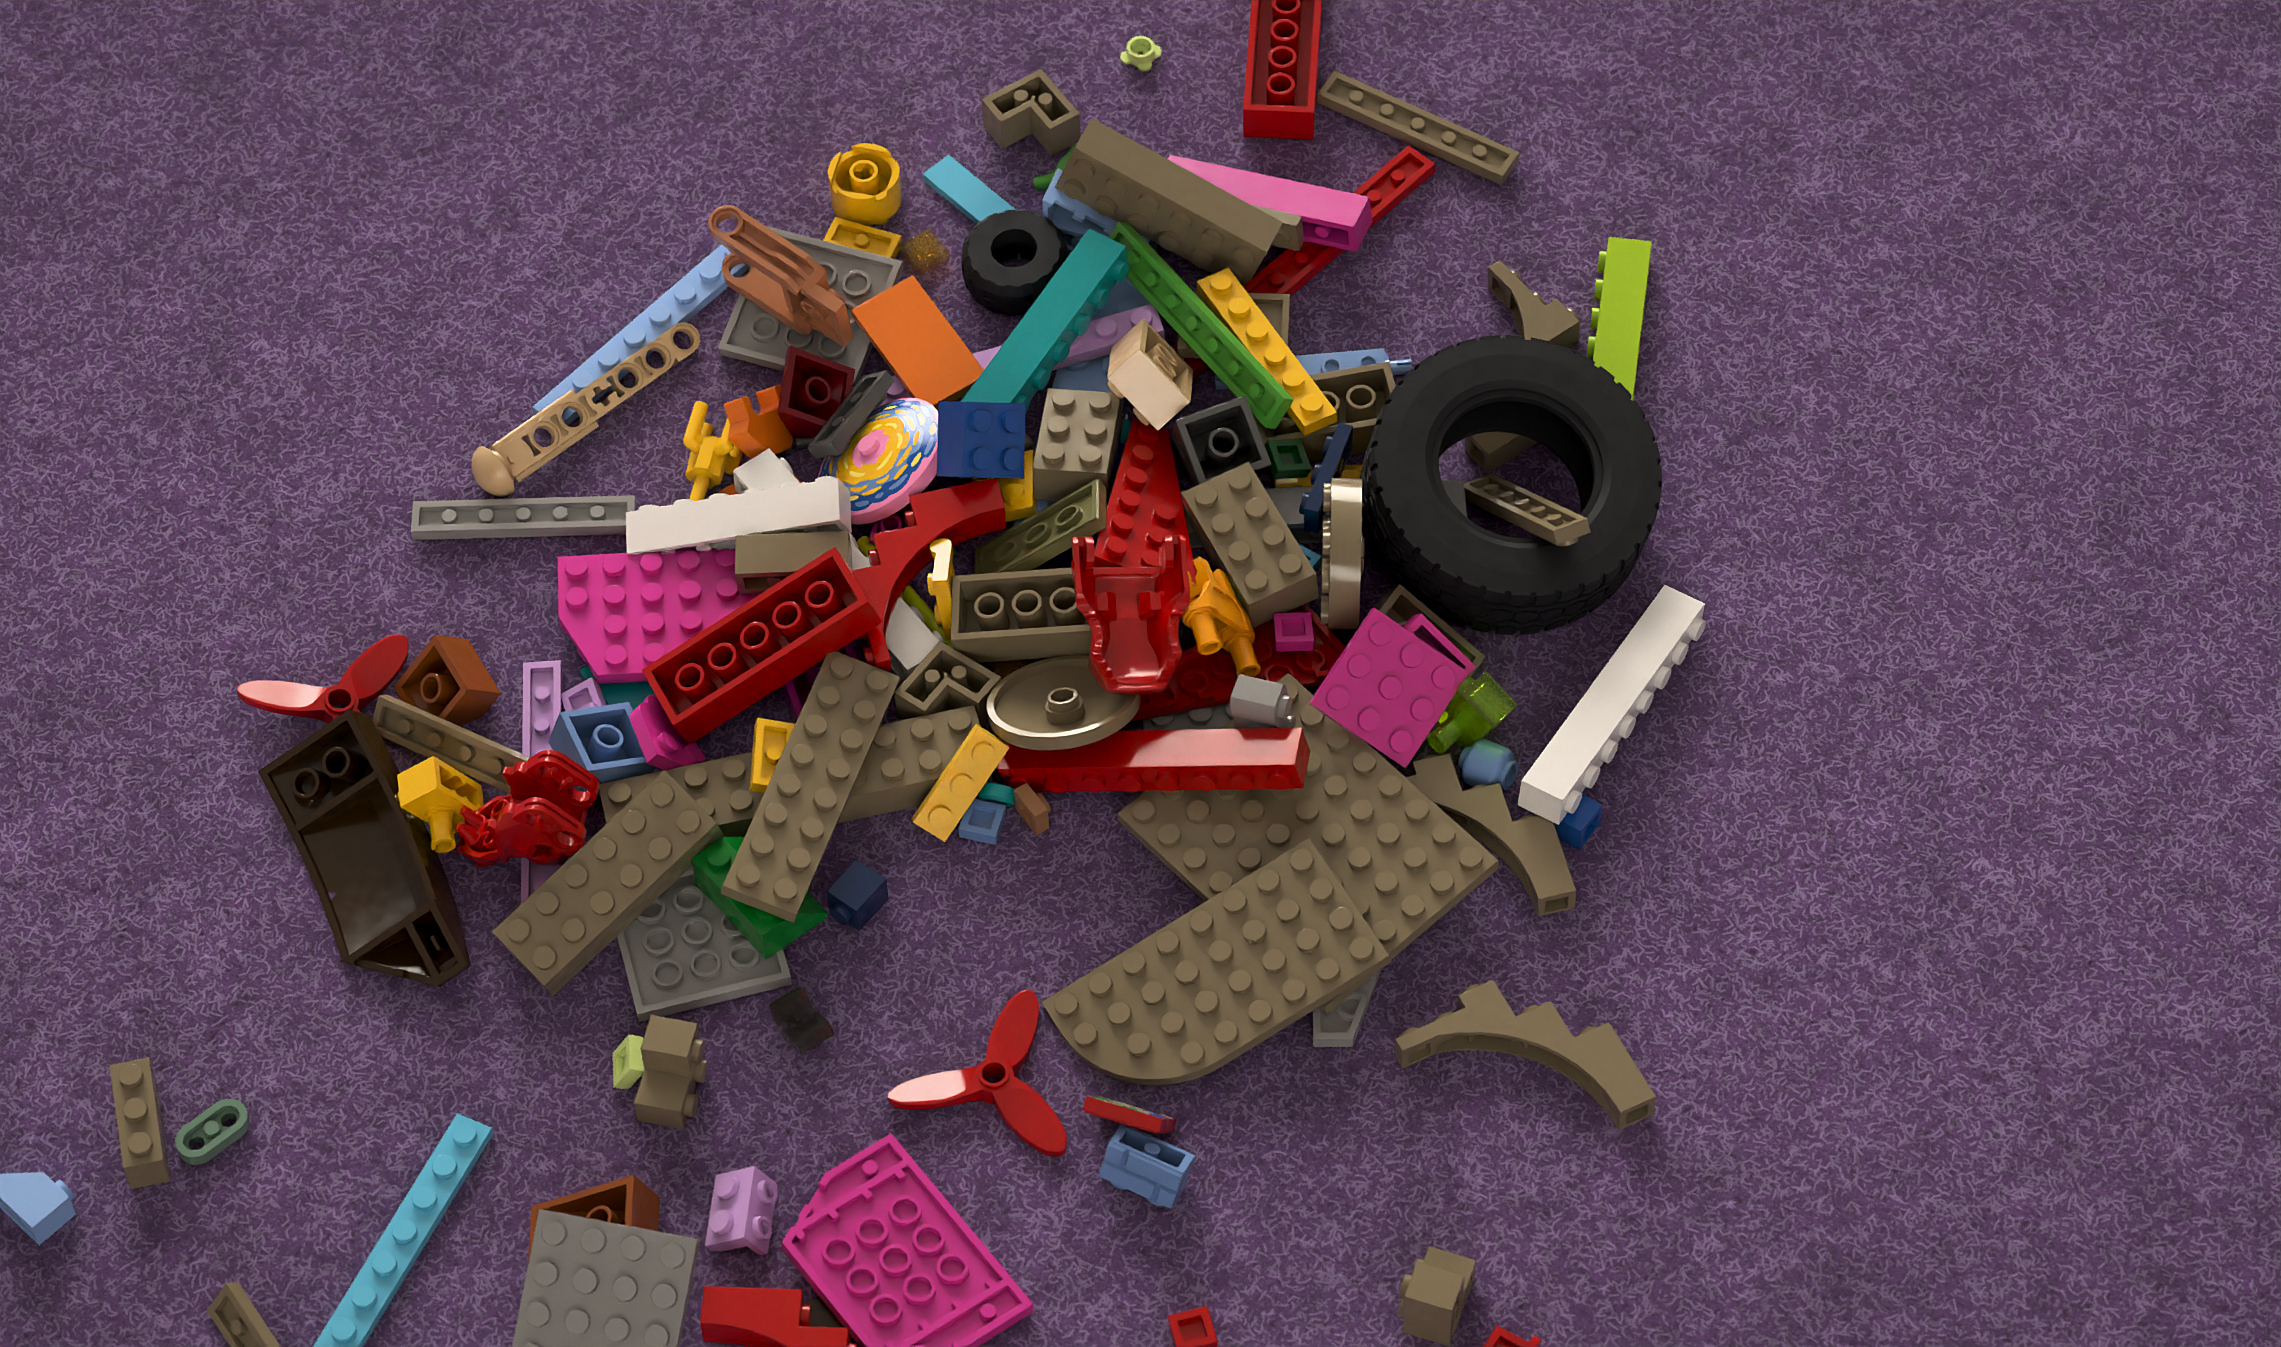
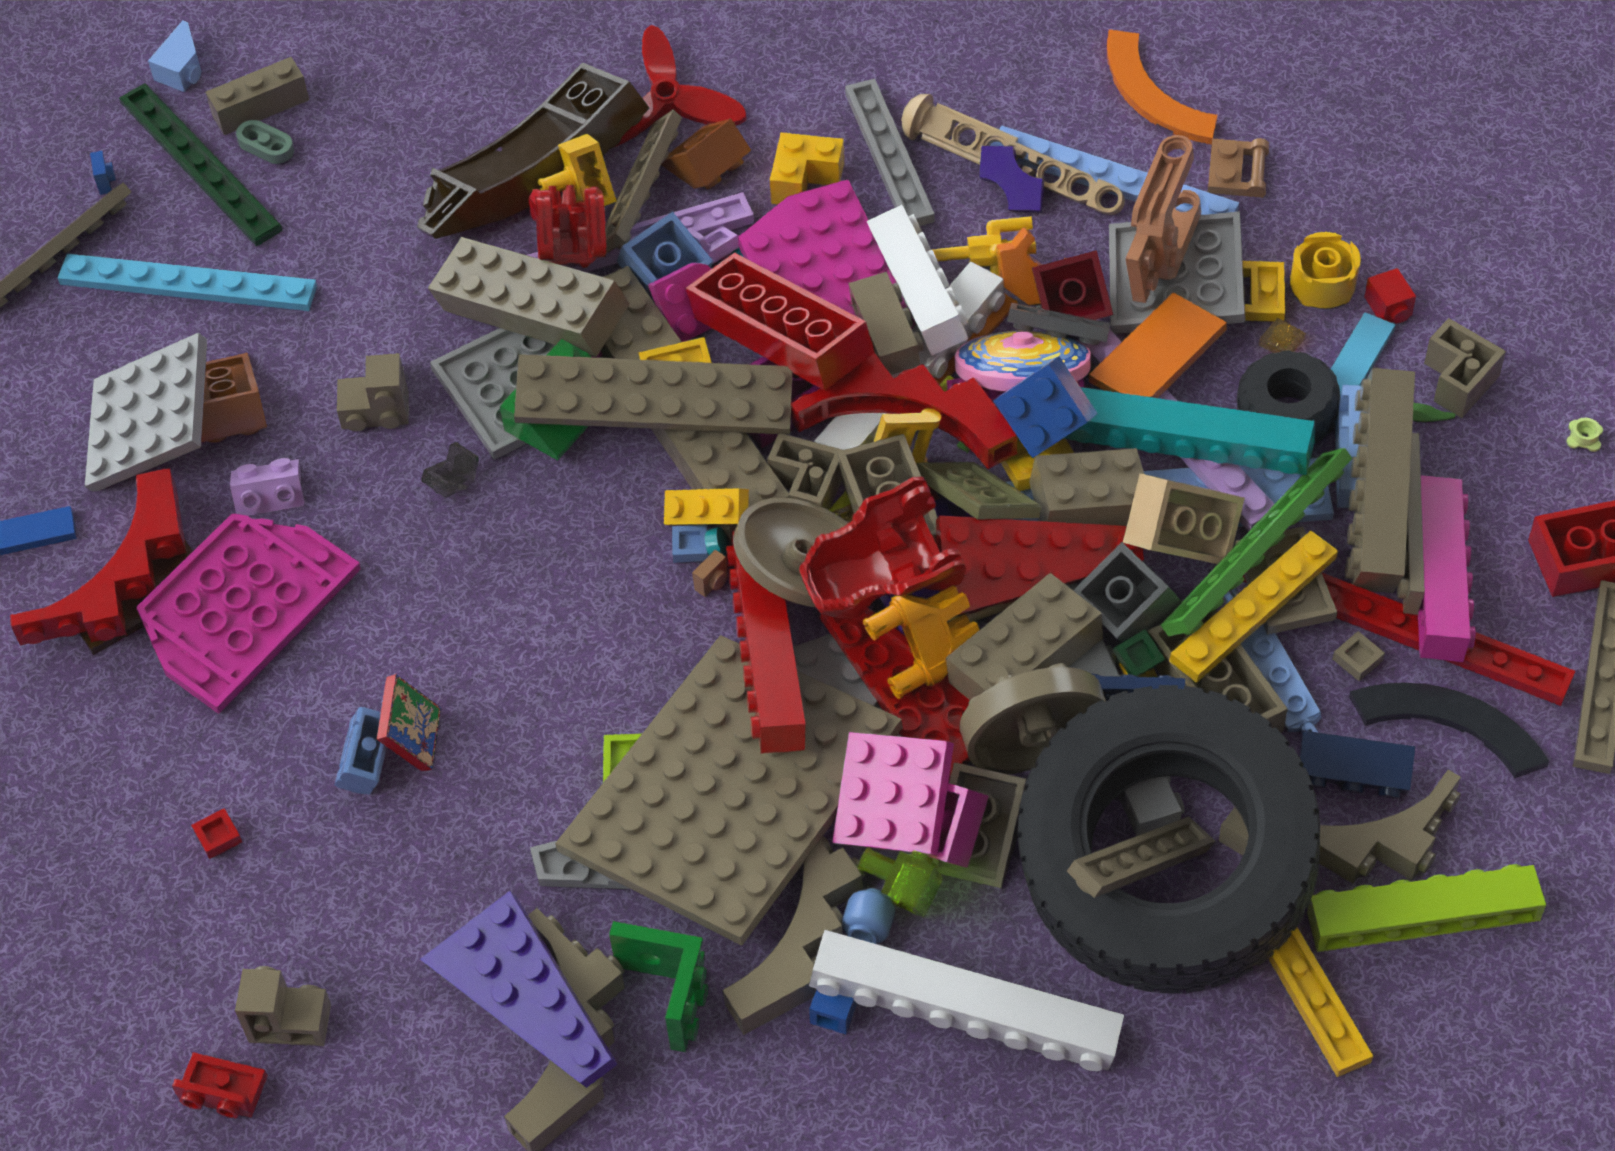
camera: 75 degrees right, 0 degrees up
(183, 1315) = (102, 172): none -> blue plate
(207, 1212) = (201, 164): none -> dark green tile
(509, 599) = (804, 161): none -> yellow brick
(541, 273) = (1147, 97): none -> orange tile
(603, 416) = (1000, 166): none -> dark purple tile
(678, 230) = (1226, 167): none -> medium nougat plate
(857, 895) = (581, 473): dark blue brick -> none
(917, 145) = (1390, 296): none -> red brick
(1014, 1100) = (455, 623): red piece -> none
(1221, 975) = (570, 756): dark tan plate -> none
(1260, 704) = (826, 693): light grey brick -> none
(1293, 632) = (948, 712): dark pink plate -> none
(1329, 303) = (1358, 656): none -> dark tan plate
(1414, 249) = (1454, 710): none -> black tile
(1462, 317) = (1357, 763): none -> dark blue brick
(1467, 1074) = (515, 978): none -> wing
(1521, 924) = (667, 956): none -> green bracket
(1682, 445) = (1320, 1006): none -> yellow plate

